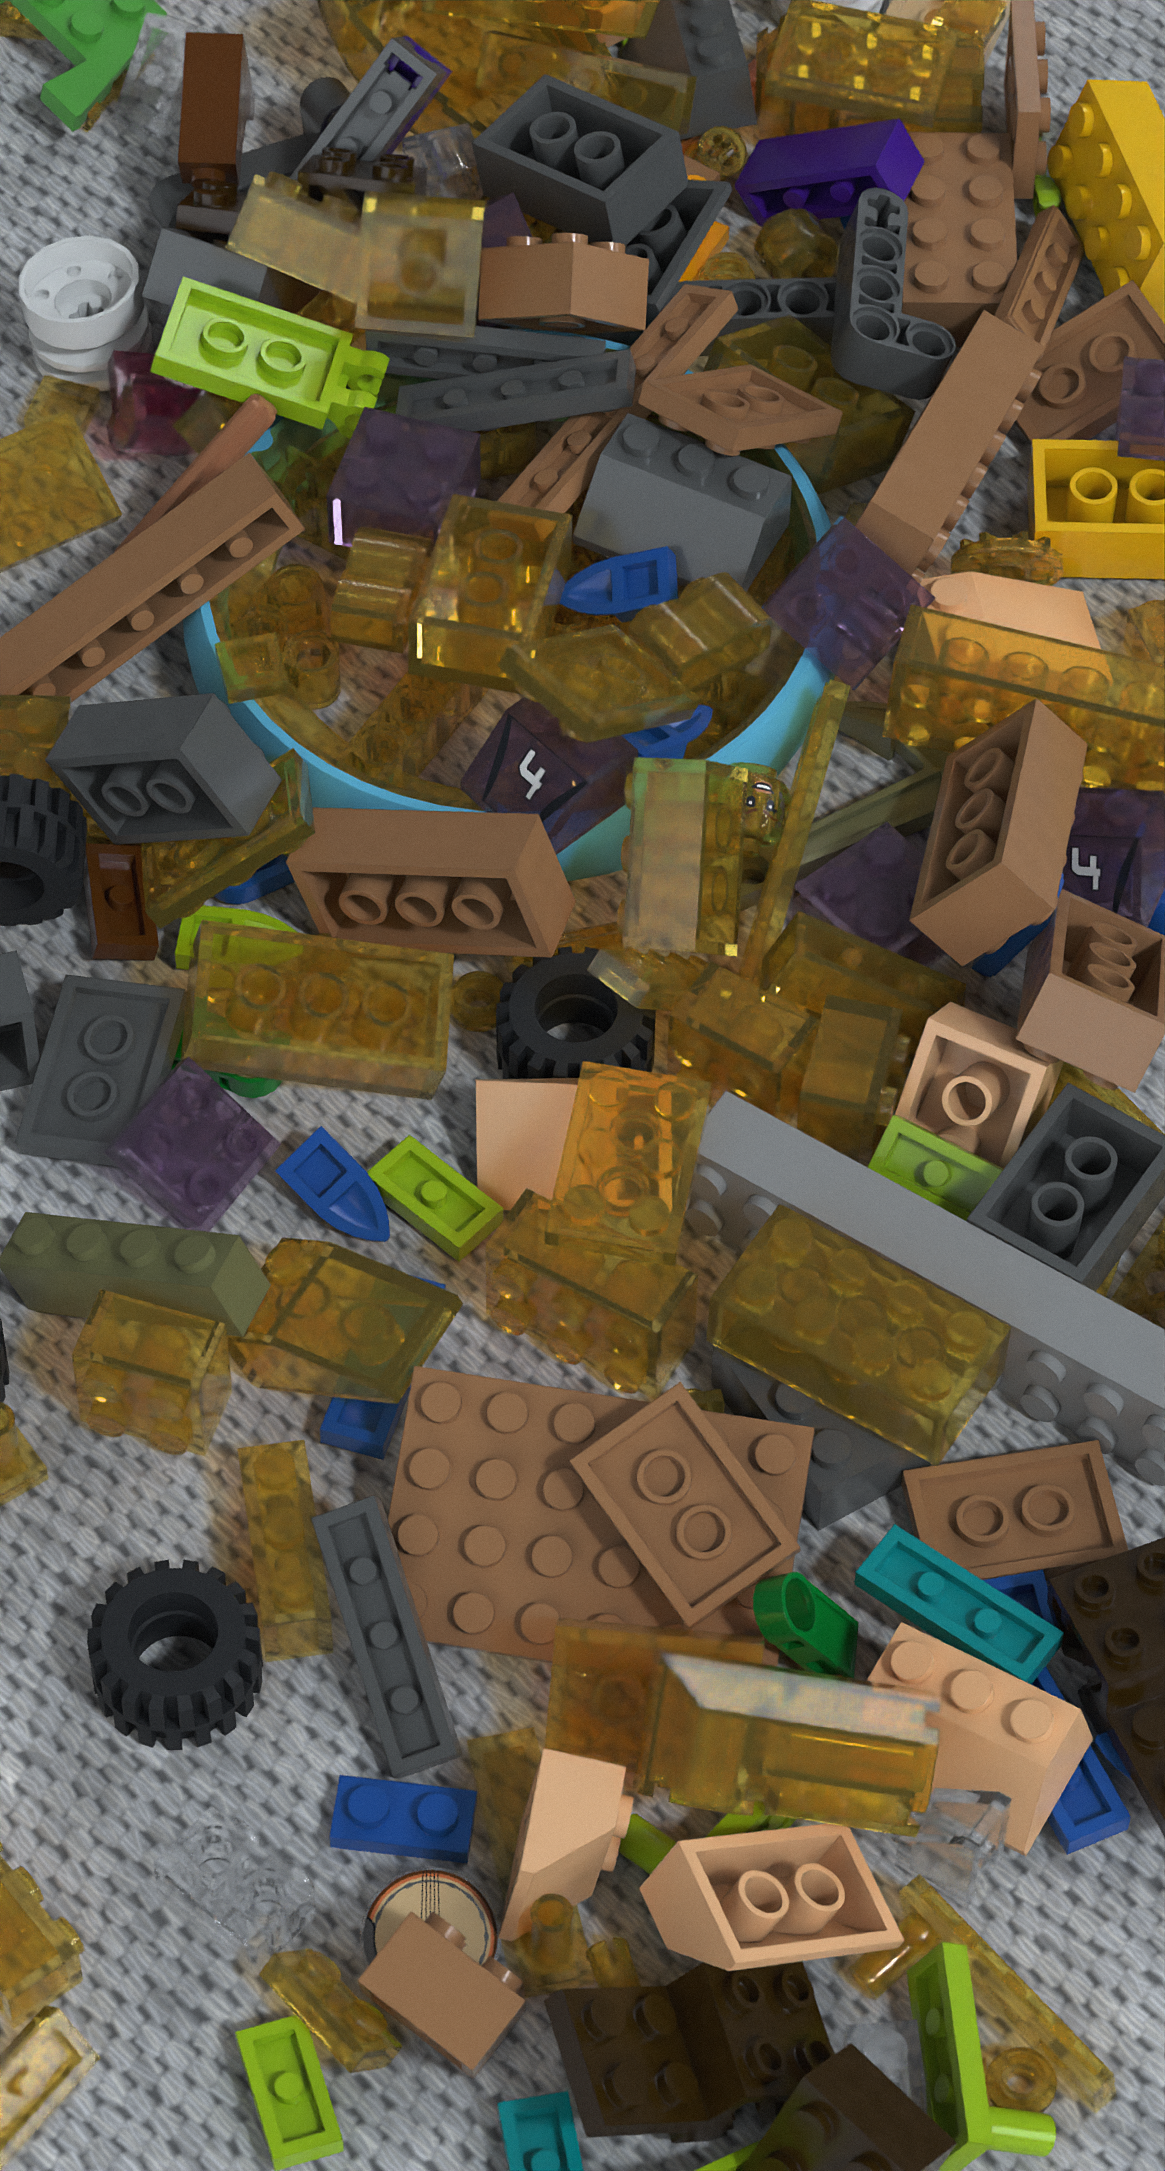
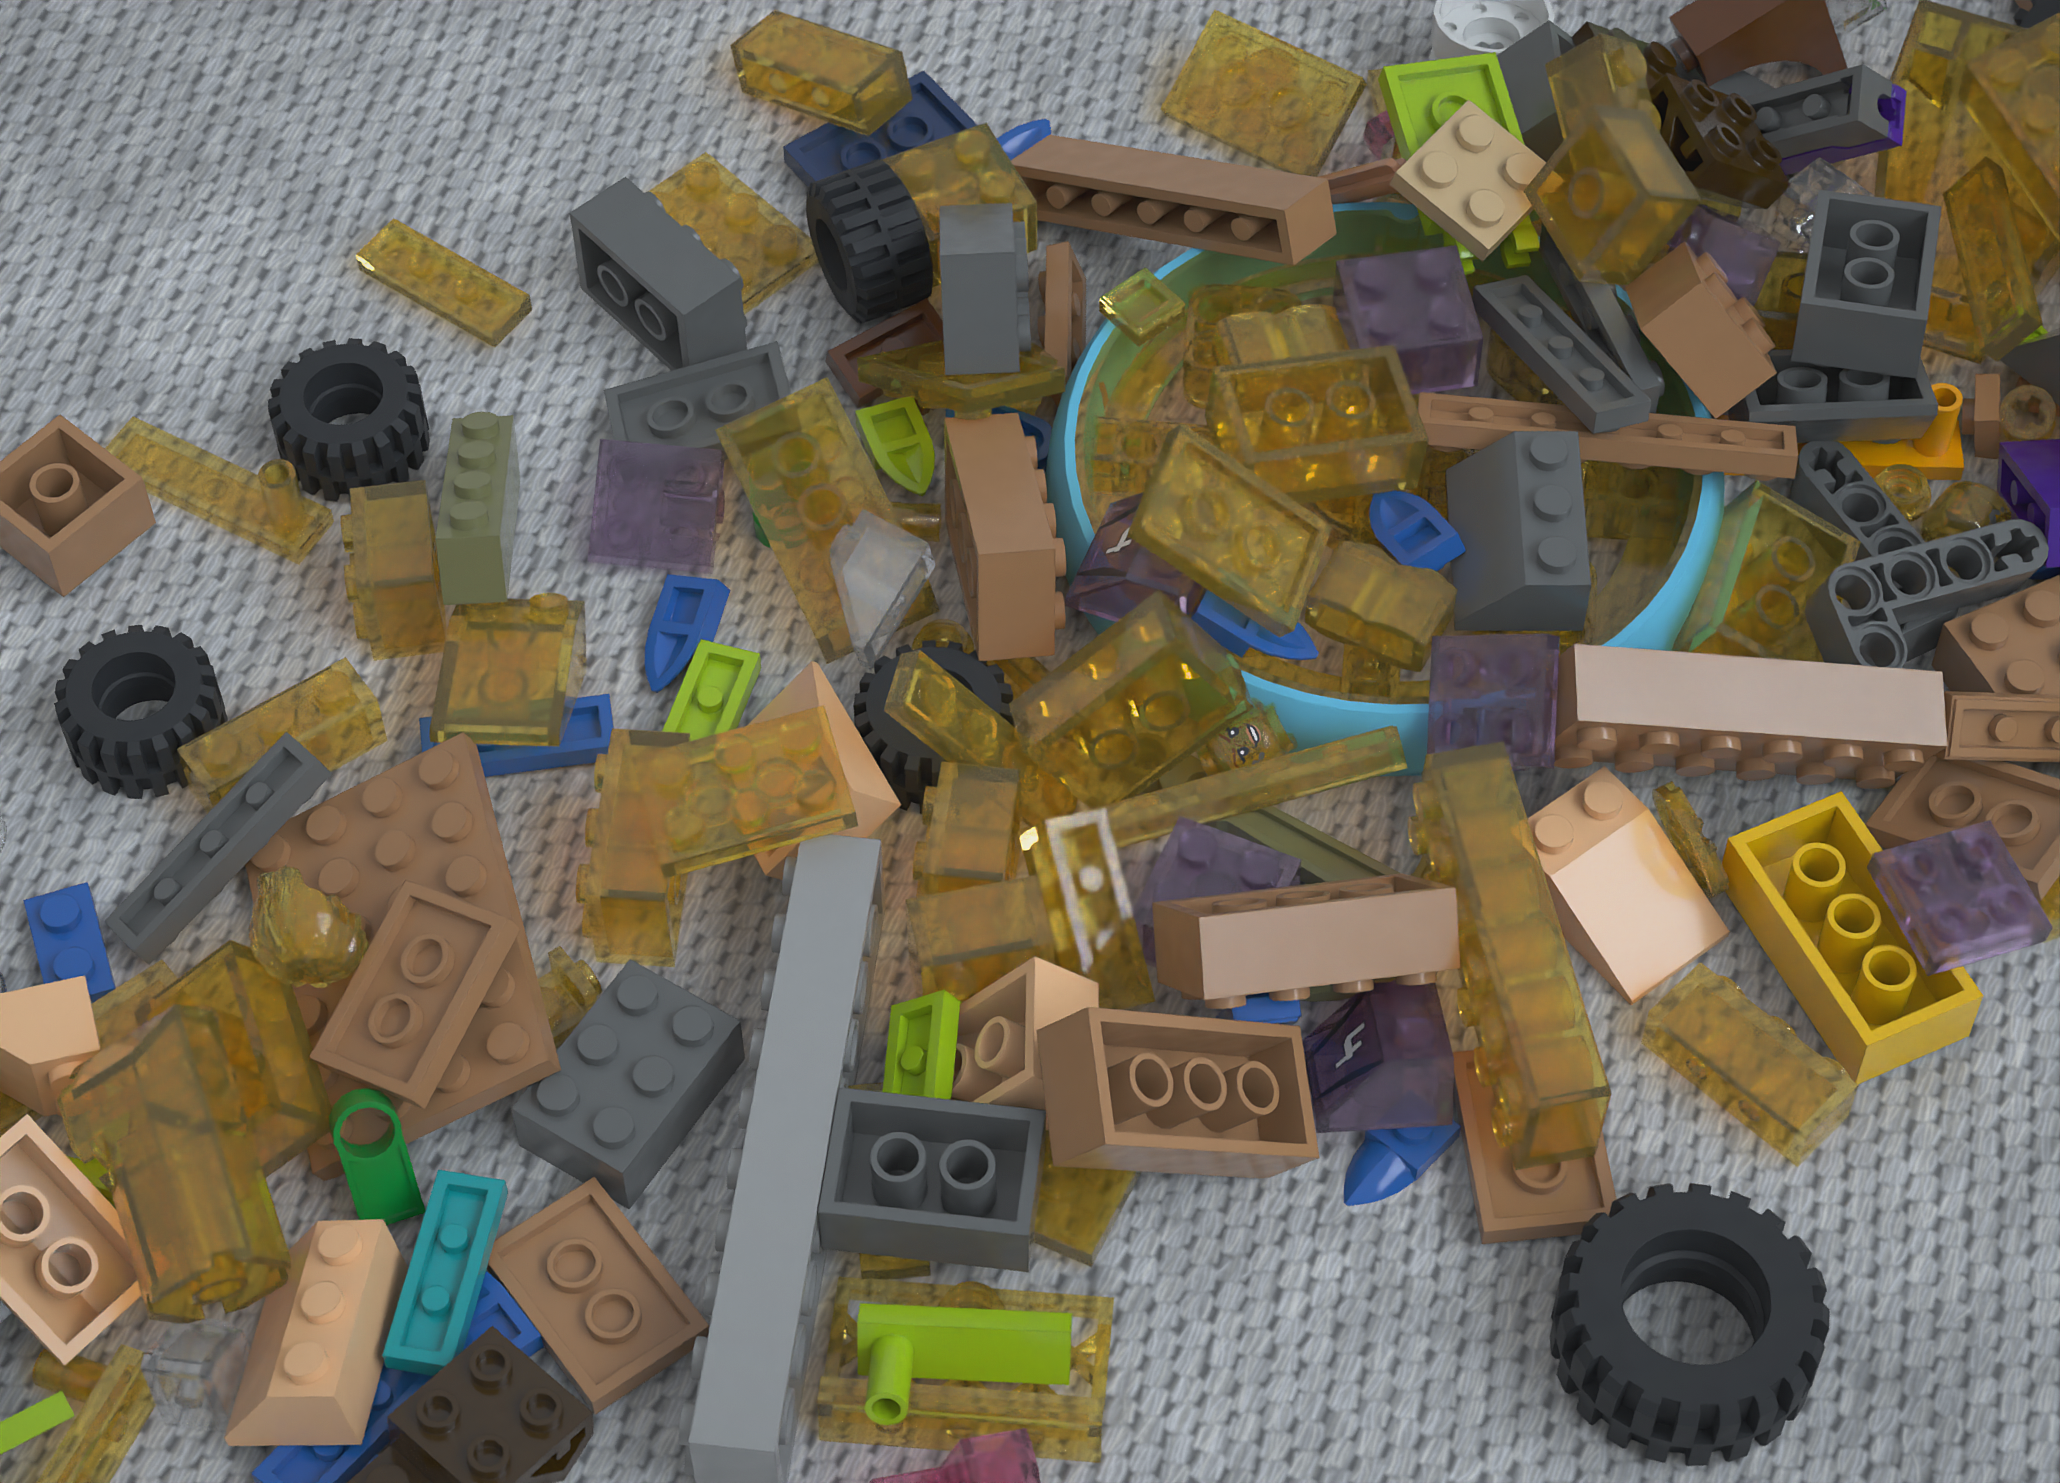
camera: 65 degrees right, 0 degrees up
(310, 357) = (1471, 179): none -> tan plate
(443, 986) = (877, 580): none -> clear slope
(570, 1569) = (303, 933): none -> clear yellow hair
(739, 409) = (1652, 517): medium nougat plate -> none
(858, 1334) = (662, 1053): clear yellow brick -> none

